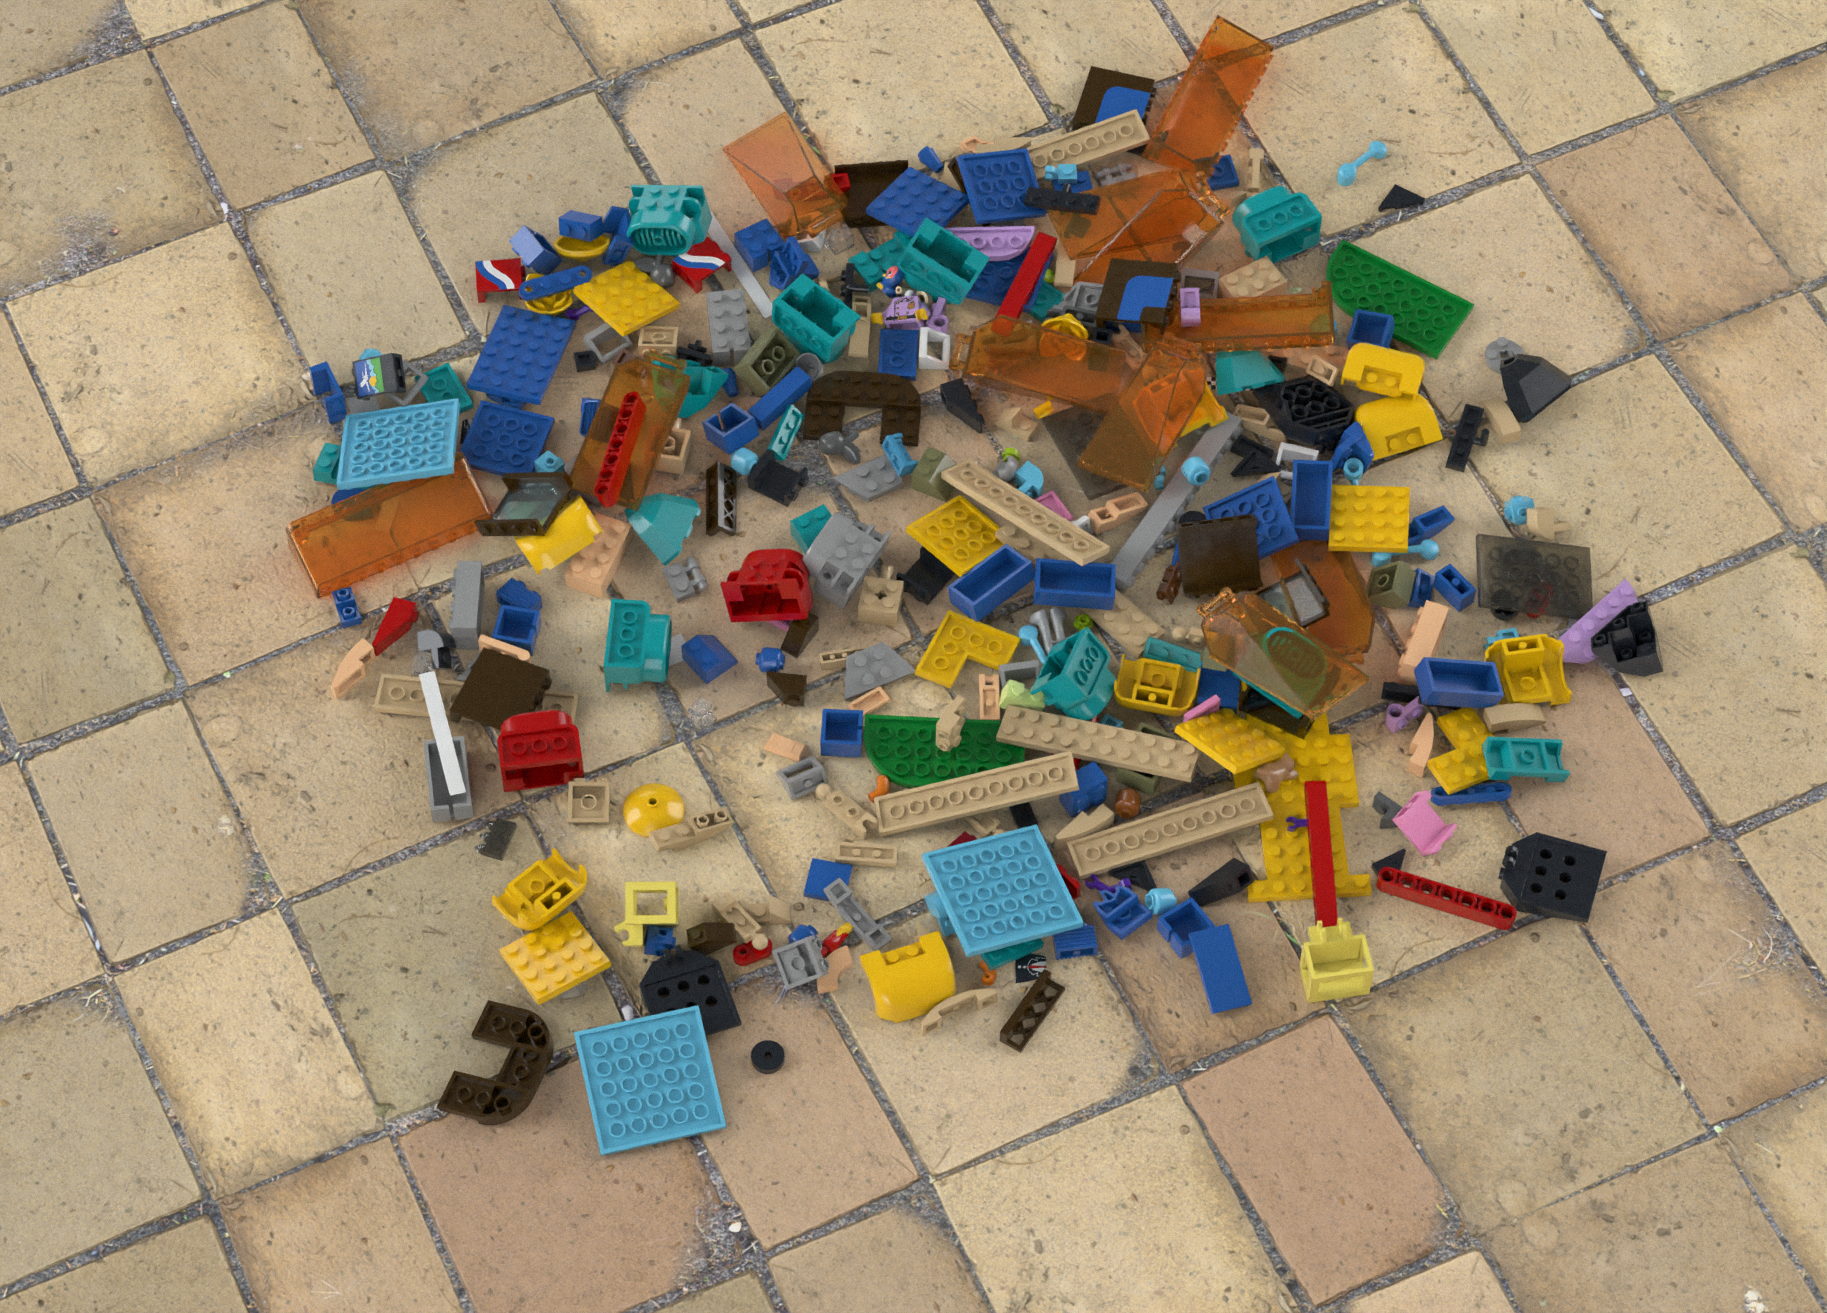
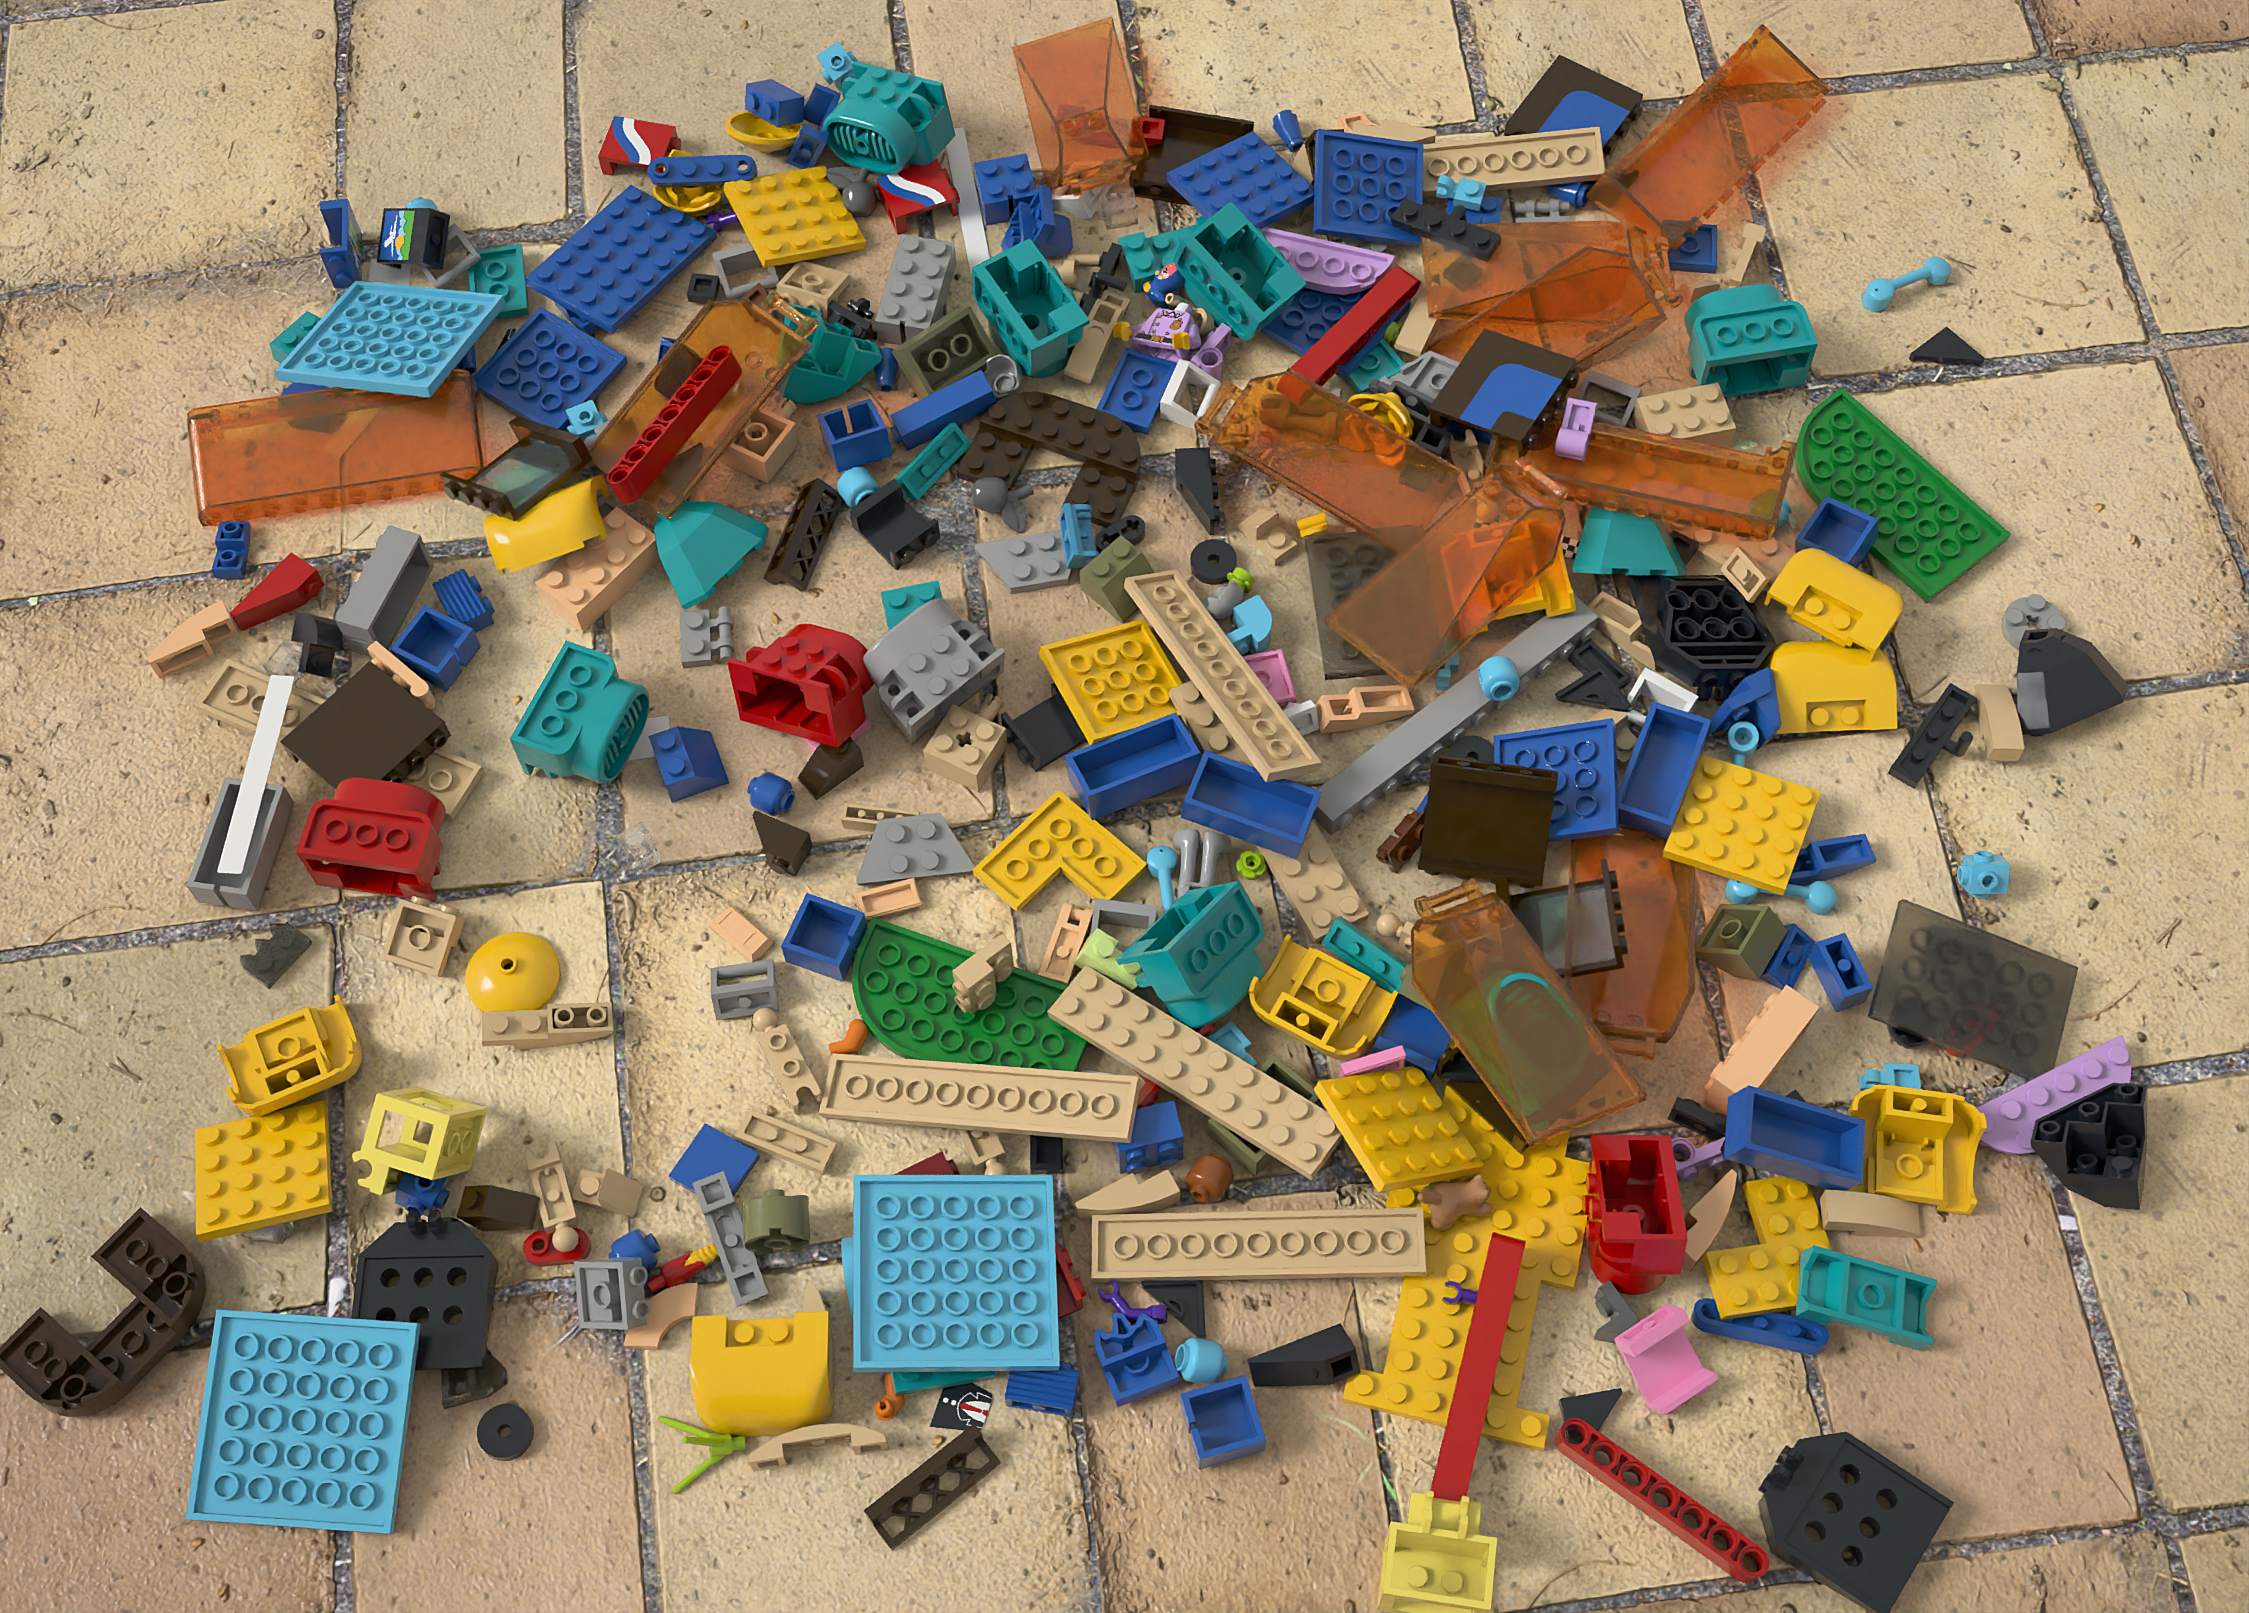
camera: 20 degrees right, 5 degrees up
(535, 251) = (698, 122): blue piece -> none
(612, 190) = (836, 64): none -> medium azure brick
(735, 1036) = (473, 1384): none -> clear smoke slope
(882, 897) = (776, 1222): none -> olive brick
(896, 1026) = (718, 1445): none -> lime plant
(921, 445) = (1120, 528): none -> black beam
(988, 456) = (1213, 550): none -> black piece
(1131, 156) = (1571, 192): none -> blue cone
(1220, 969) = (1249, 1513): blue tile -> none
(1381, 750) = (1634, 1212): none -> red brick
(1542, 523) = (2013, 907): tan brick -> none

